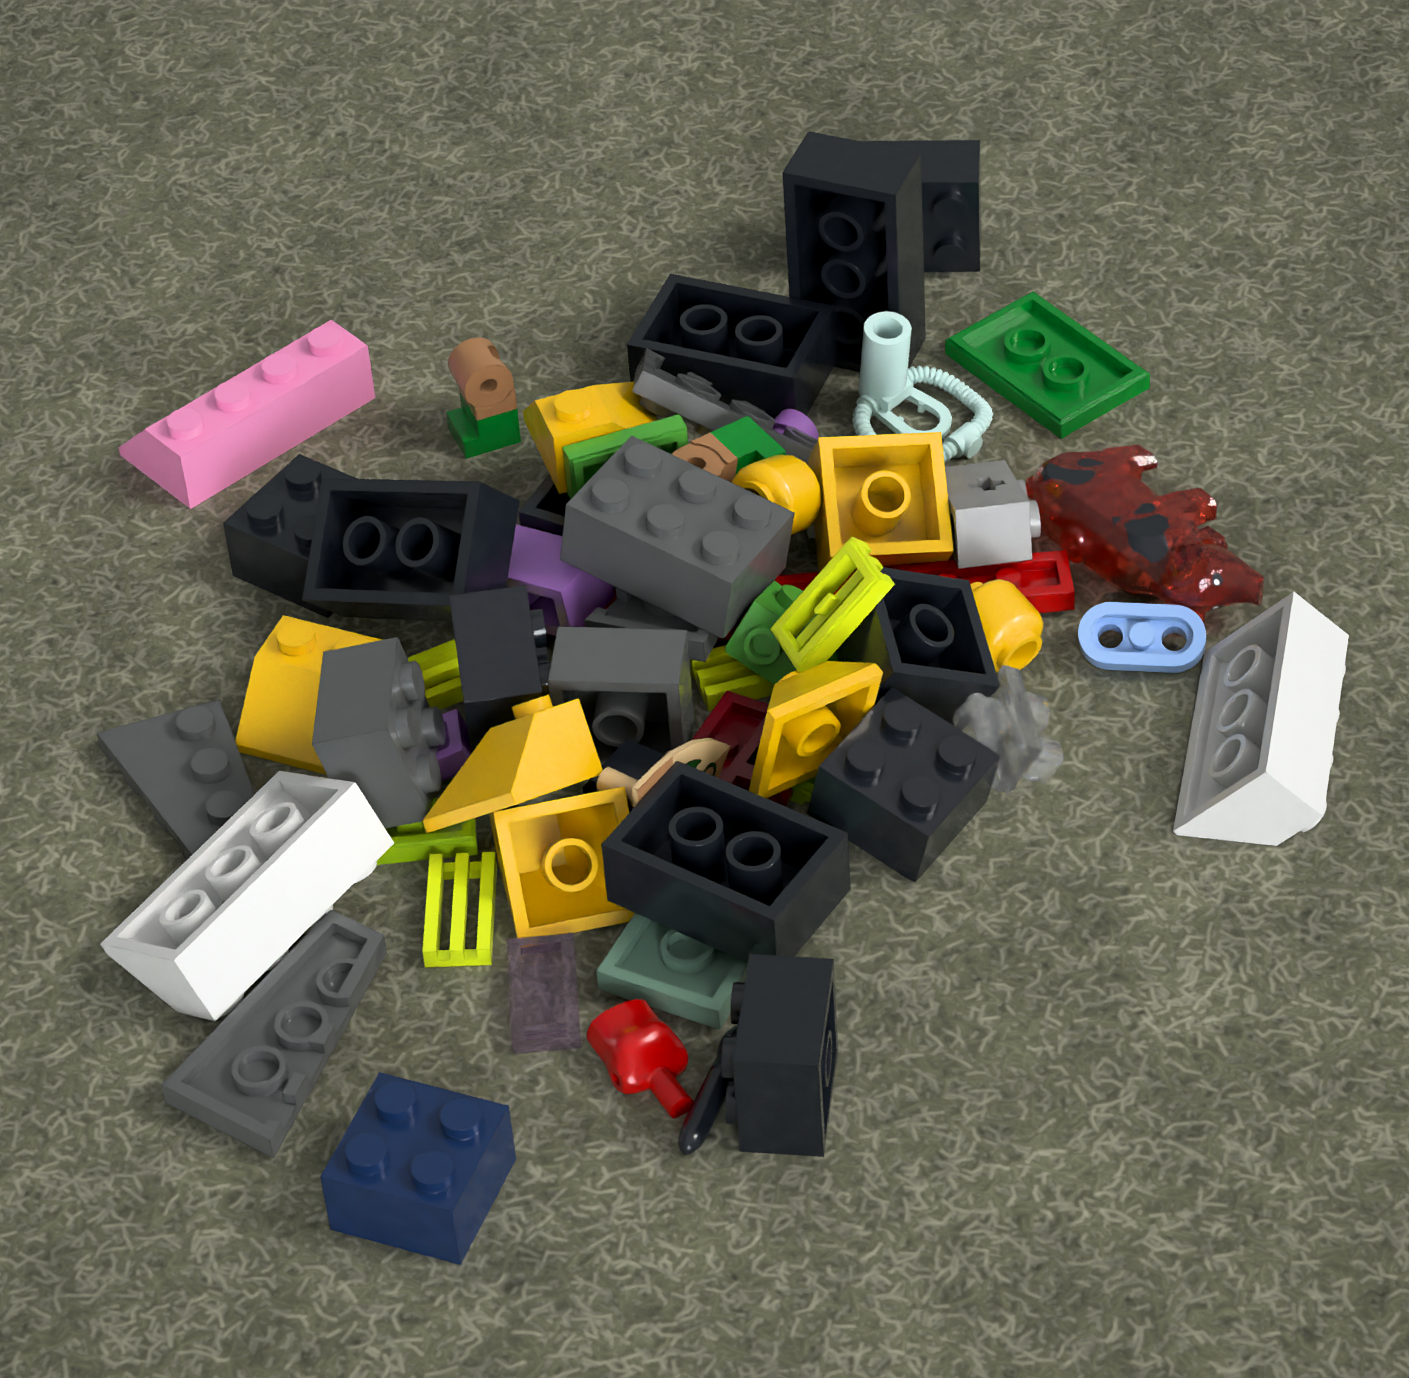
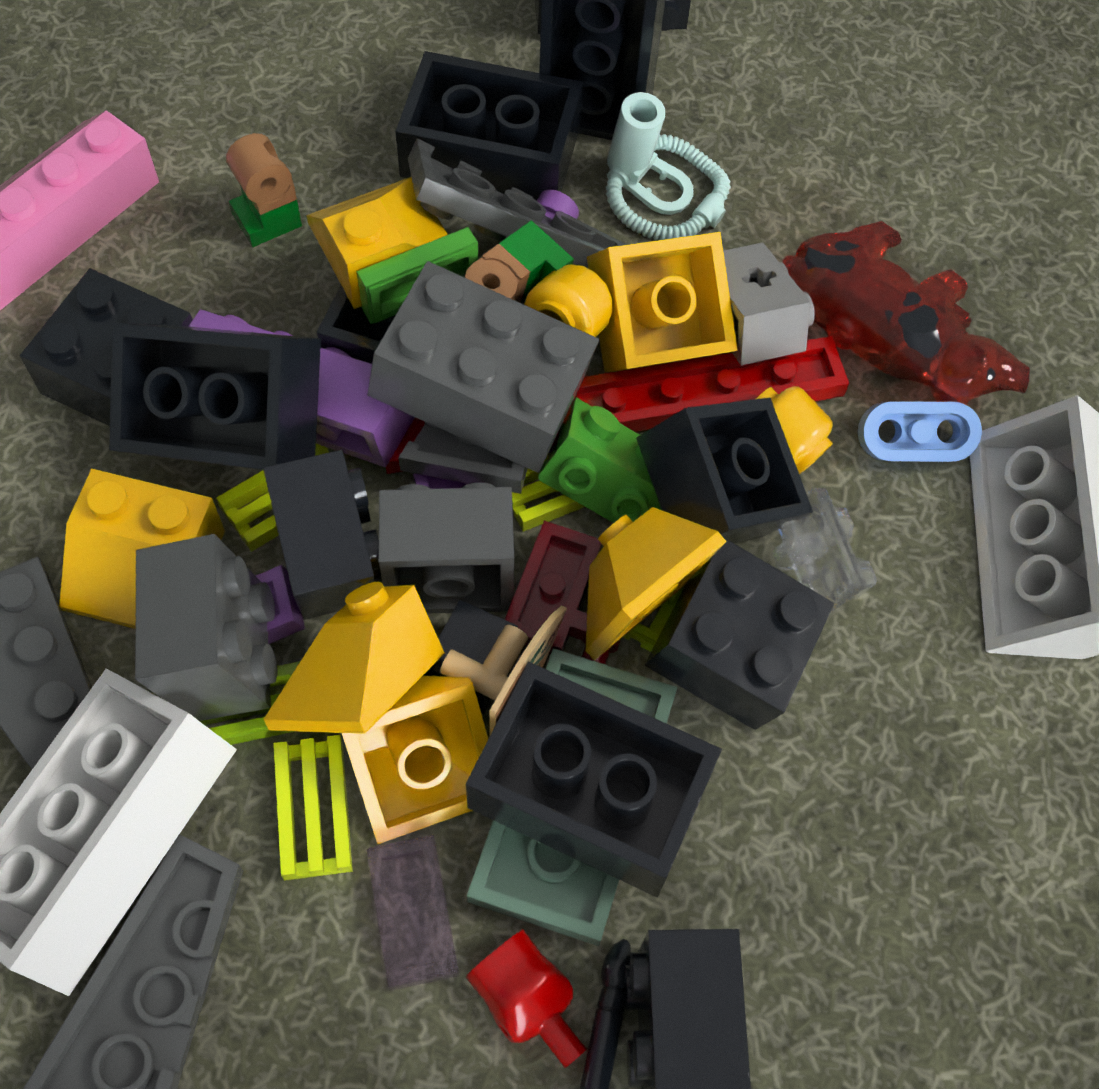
camera: 15 degrees left, 20 degrees up
(836, 614) = (693, 420): neon yellow tile -> none
(1047, 364) = (766, 126): green tile -> none

